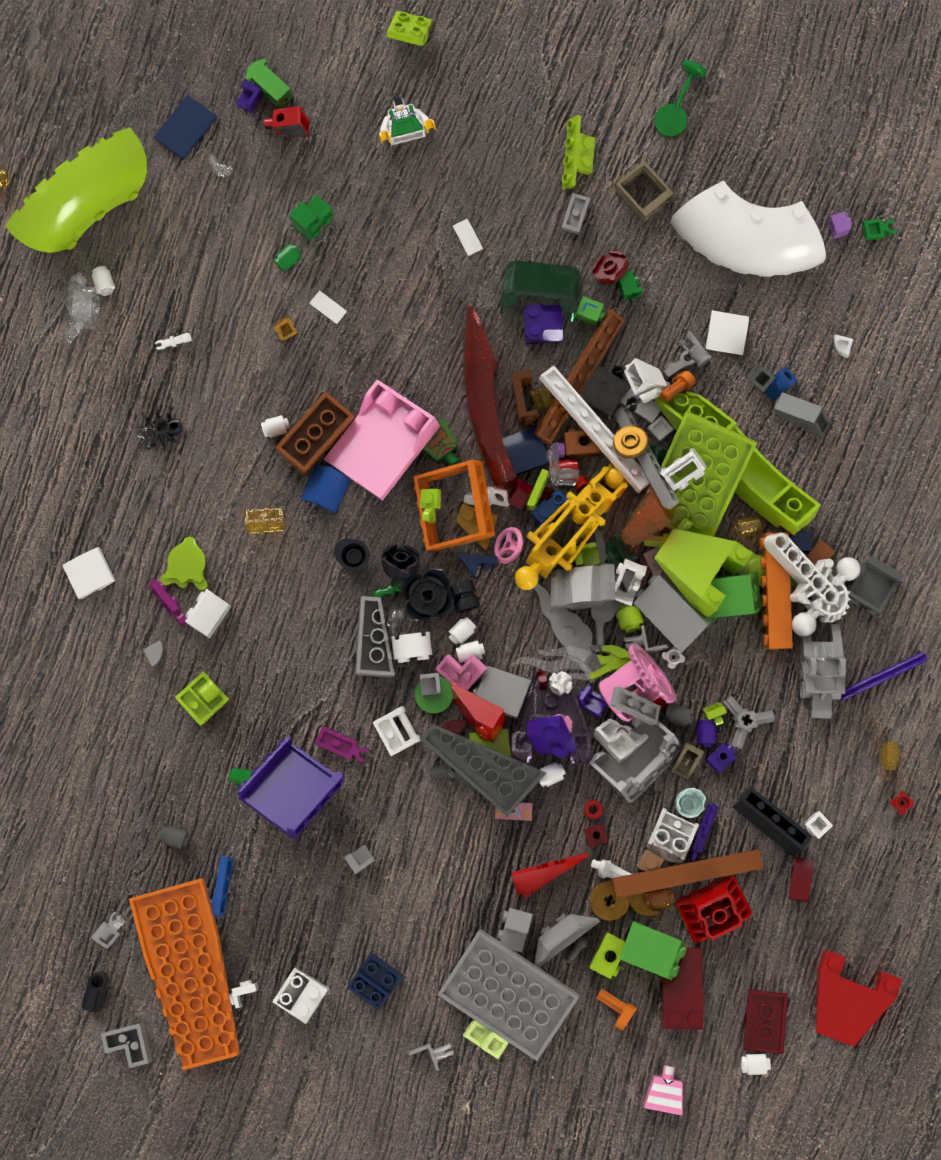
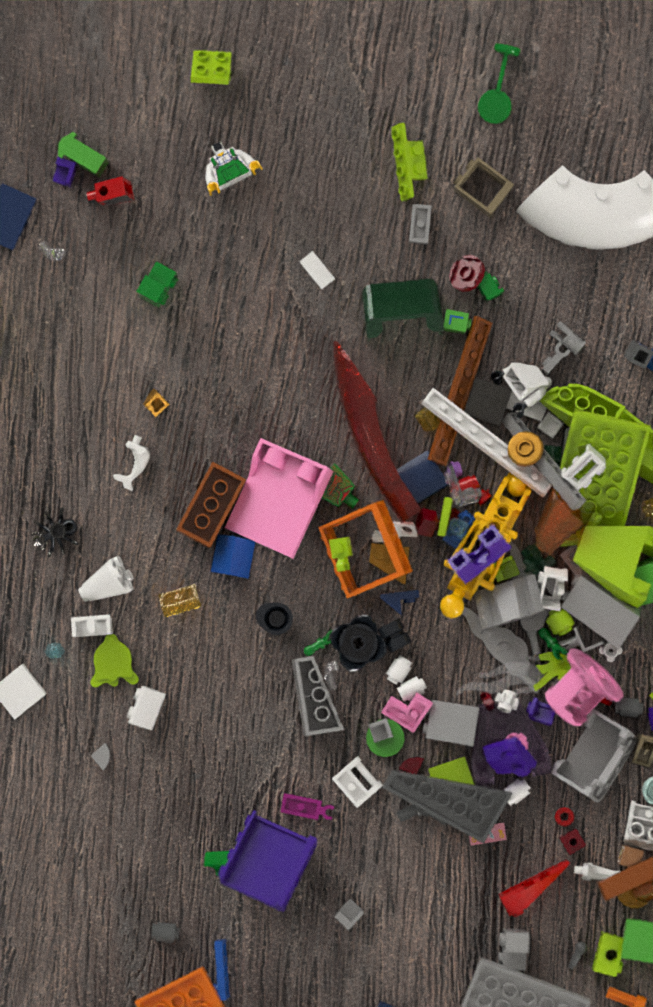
camera: 15 degrees left, 5 degrees up
(132, 540) = (54, 650): none -> clear light blue plate
(168, 602) = (106, 705): magenta plate -> none
(172, 341) = (46, 440): white piece -> none
(173, 524) = (91, 625): none -> white window
(199, 485) = (107, 581): none -> white cone
(202, 698) = (159, 791): lime plate -> none
(259, 376) = (141, 457): none -> white animal
(275, 426) = (169, 505): white brick -> none
(287, 257) = (142, 330): green brick -> none
(328, 307) = (193, 371): white sticker -> none
(400, 562) = (324, 615): black cylinder -> none
(411, 646) = (354, 697): white brick -> none
(481, 714) = (438, 751): slope -> none
(510, 546) = (428, 575): bright pink piece -> none
(520, 380) = (399, 411): reddish brown panel -> none
(542, 323) = (411, 343): dark purple slope -> none
(550, 499) = (462, 525): none -> clear light blue plate
(551, 538) = (471, 564): none -> dark purple arch
(561, 935) = (559, 945): light grey wedge -> none
(574, 449) = (469, 464): dark orange brick -> none
(599, 906) = (589, 907): pearl gold plate -> none
(617, 636) = (552, 643): none -> green piece
(618, 739) = (574, 743): white slope -> none
(635, 705) = (585, 711): light grey plate -> none
(680, 383) = (561, 374): orange piece -> none
(727, 332) = (596, 314): white slope -> none

